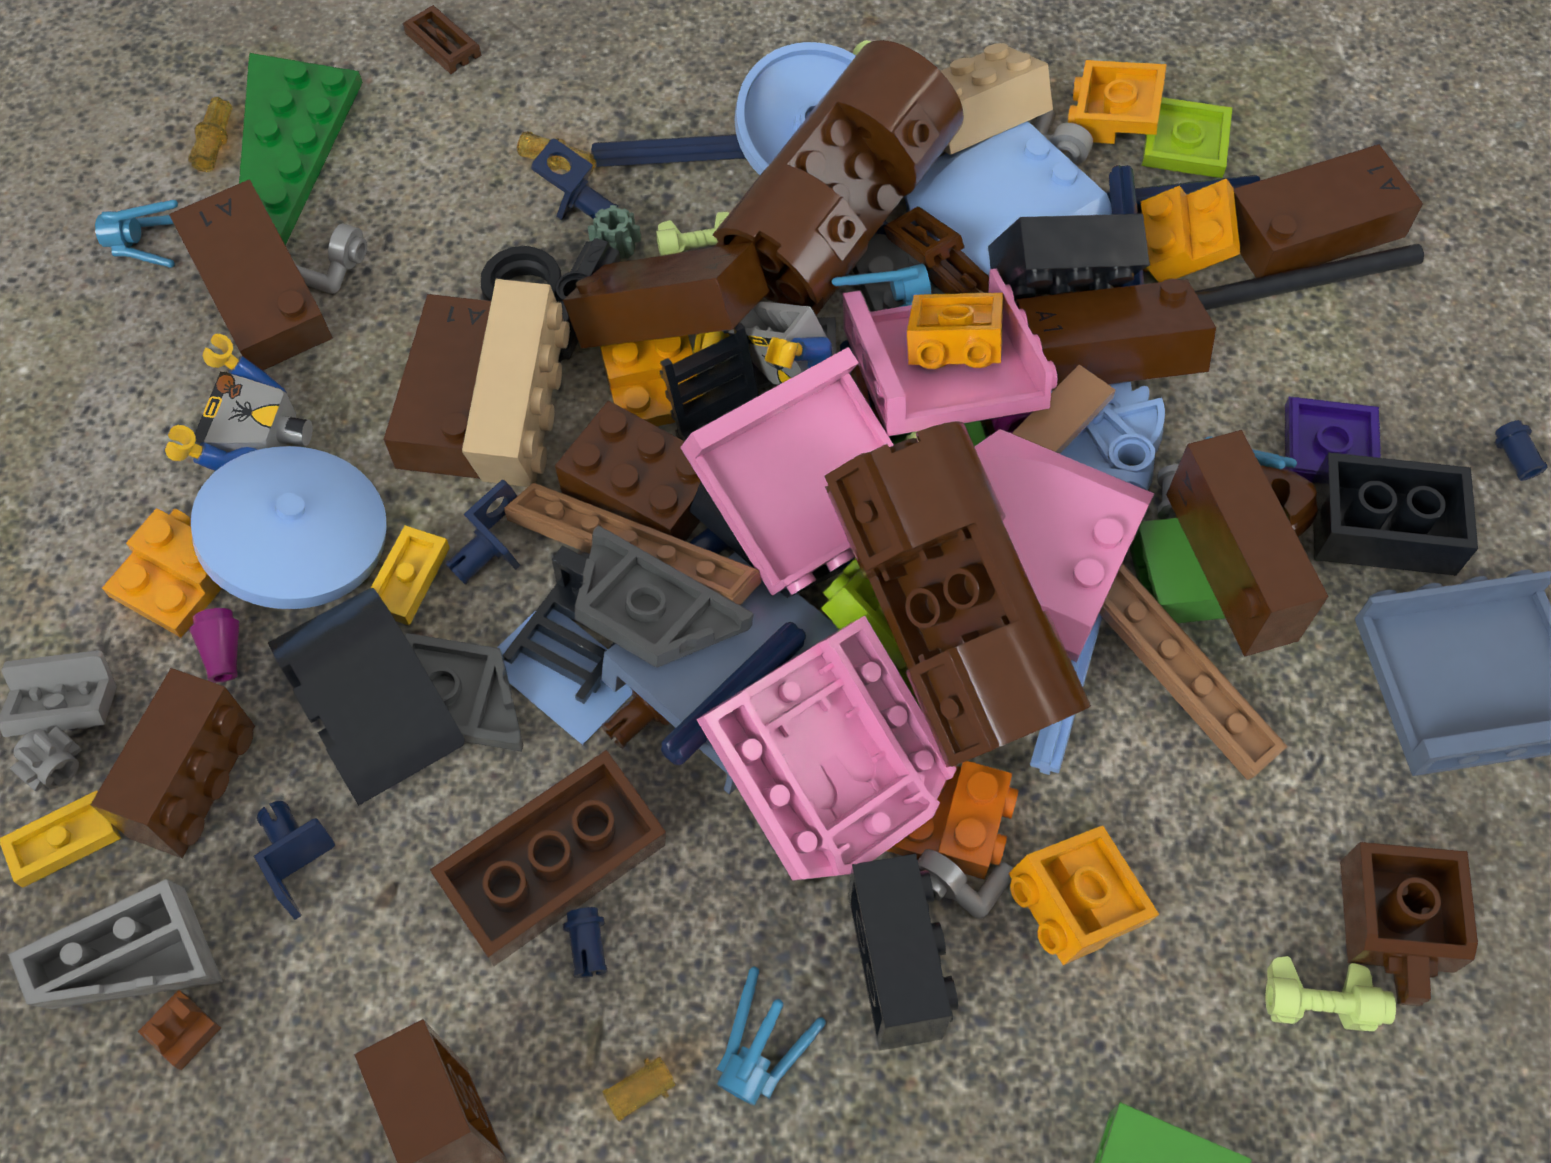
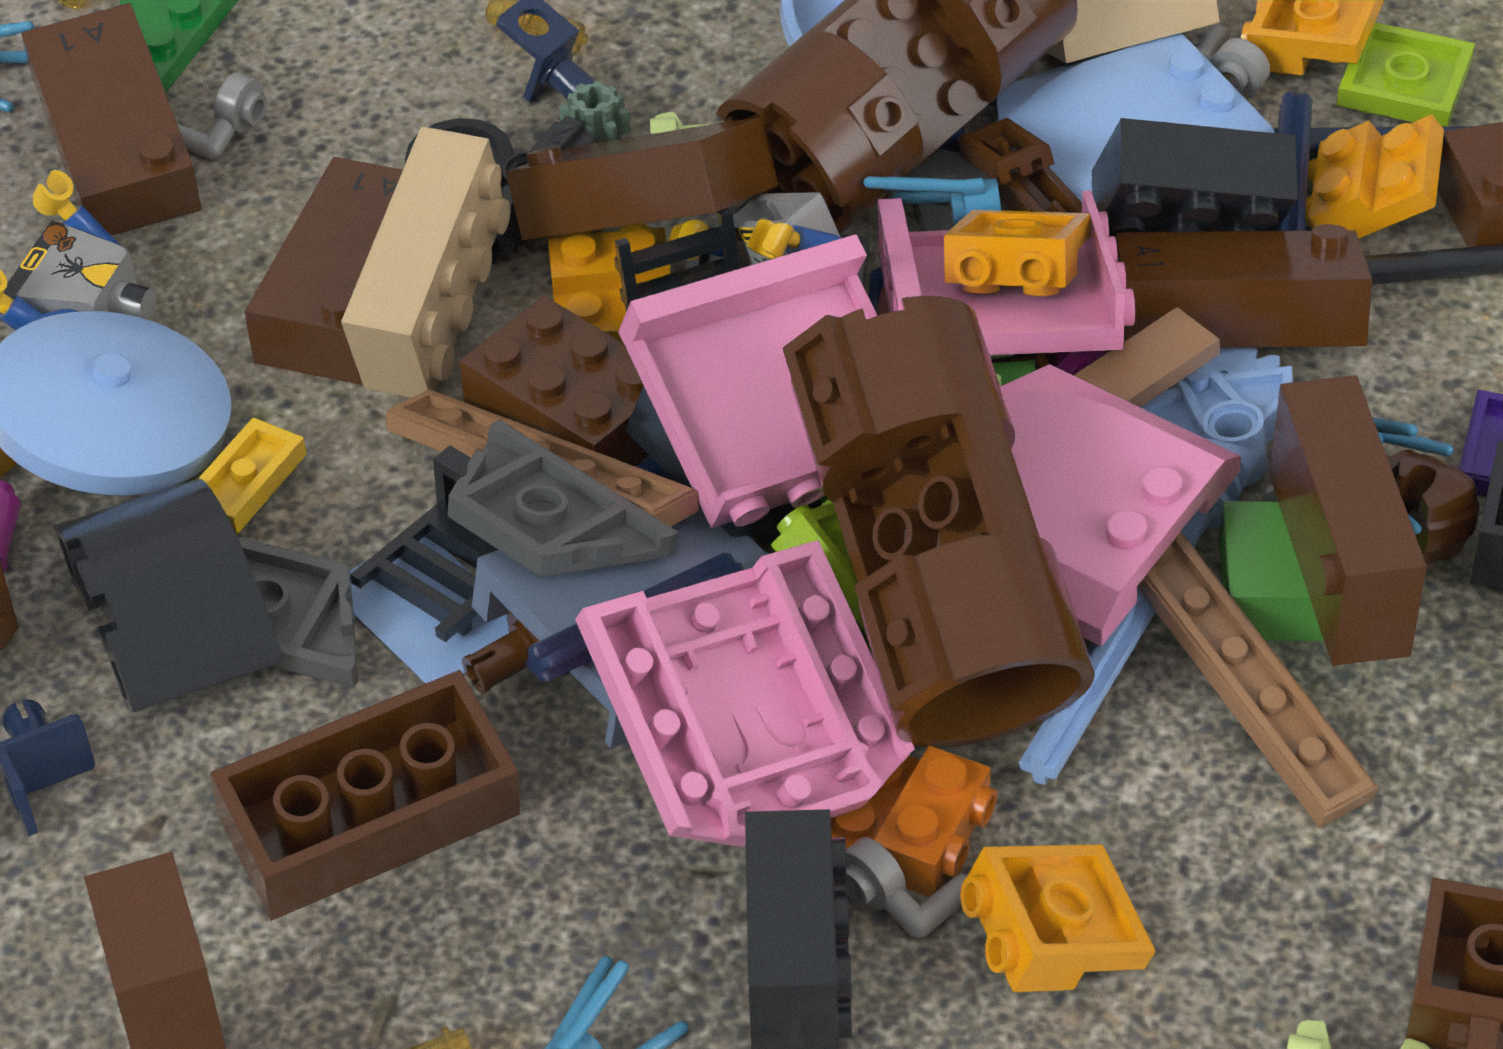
camera: 10 degrees right, 15 degrees down
(484, 544) = (354, 448): dark blue bracket -> none
(586, 941) = (394, 888): dark blue pin -> none
(666, 150) = (685, 32): dark blue axle -> none

